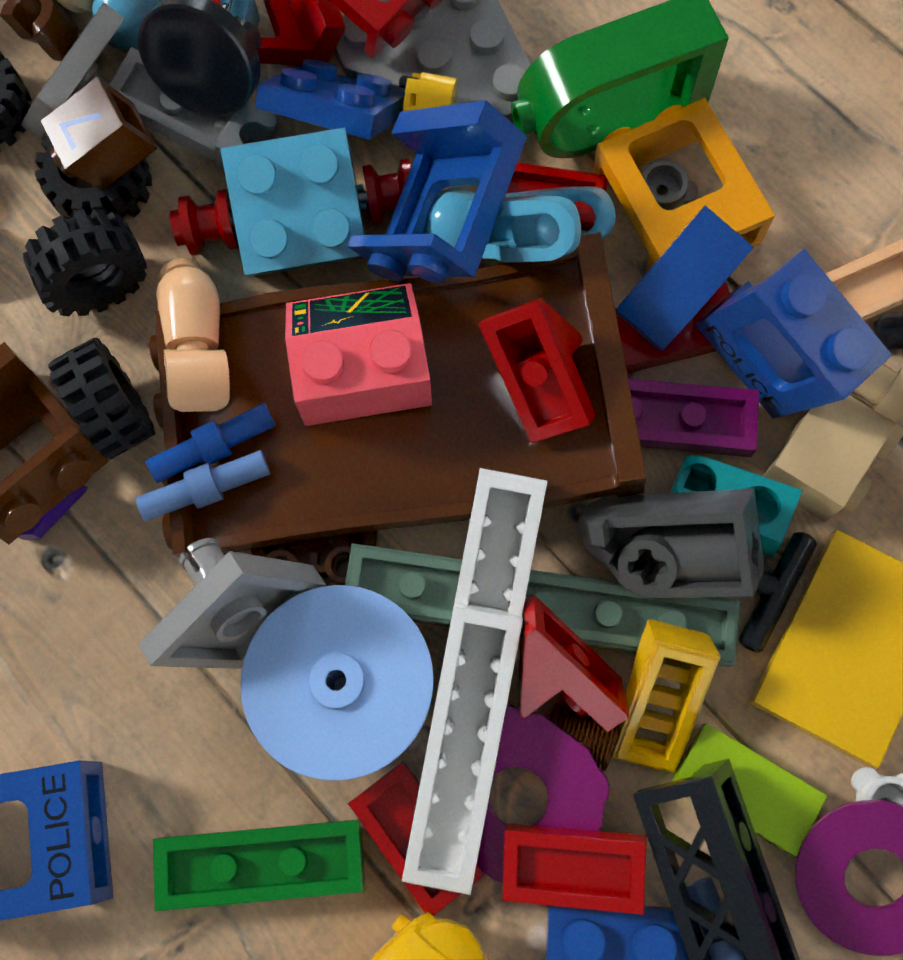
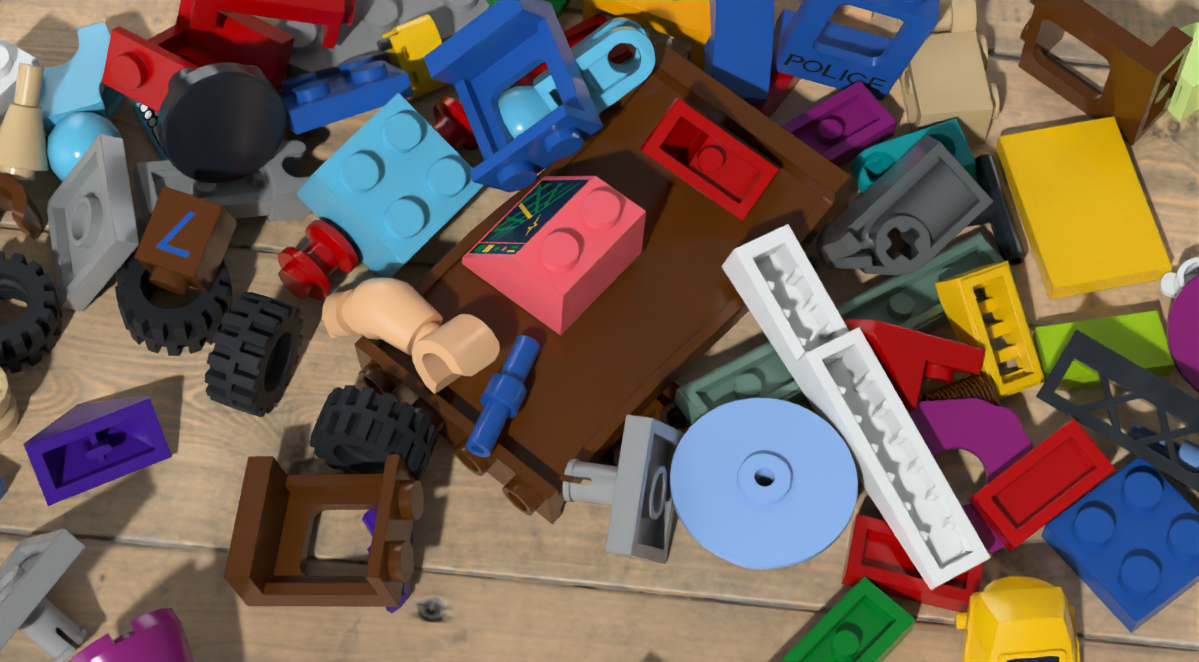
camera: 50 degrees left, 15 degrees down
(202, 485) = (528, 429): medium blue bar -> none

